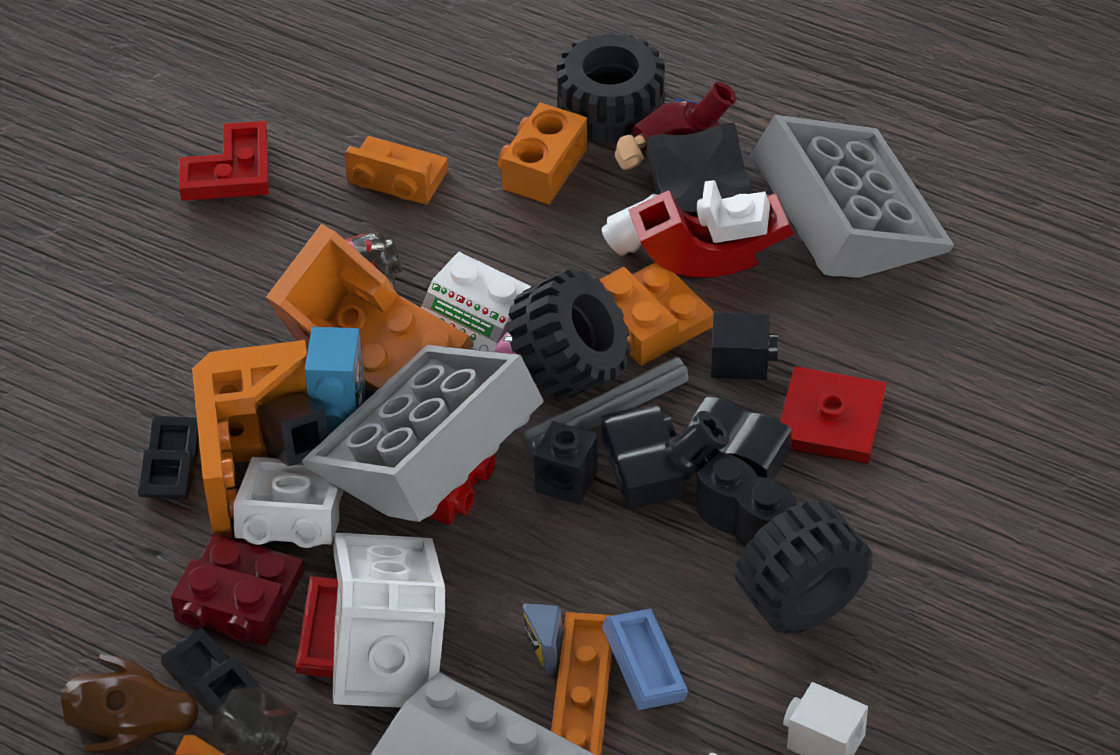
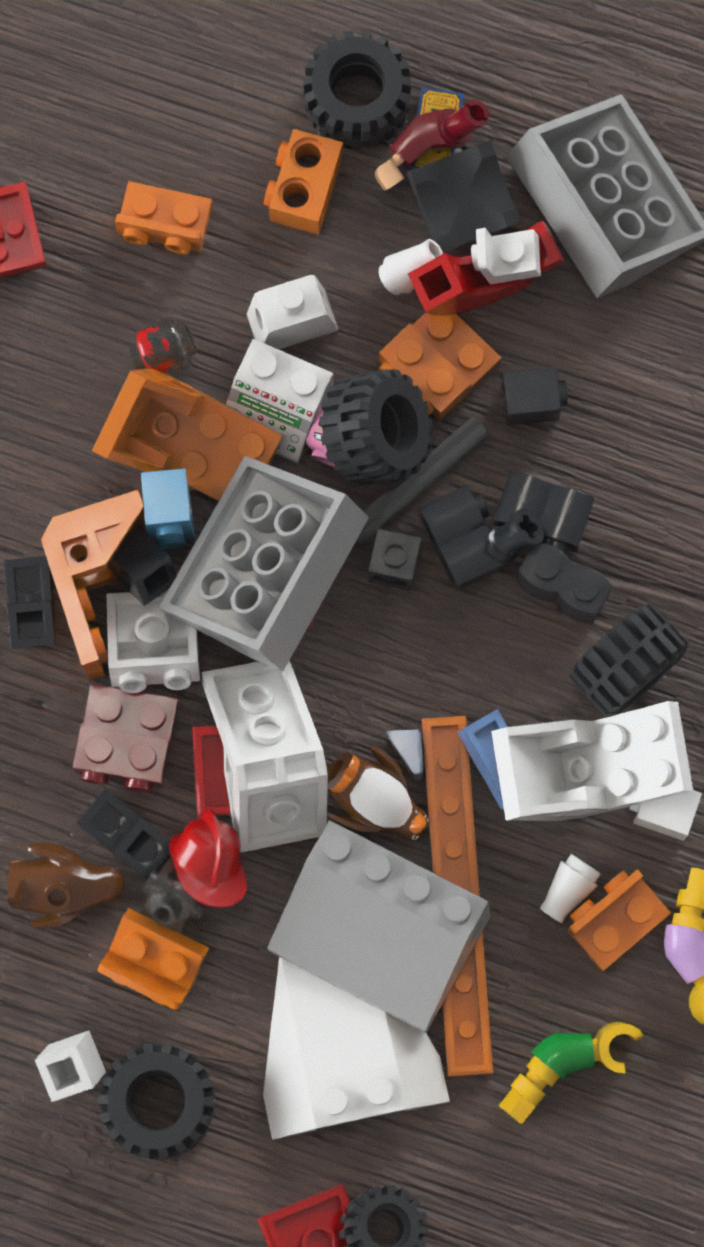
camera: 10 degrees left, 30 degrees up
(298, 694) = (209, 861): none -> red piece
(497, 664) = (374, 797): none -> animal
(507, 238) = (291, 313): none -> white torso
(731, 673) = (591, 765): none -> white bracket
(833, 413) = (624, 457): red plate -> none

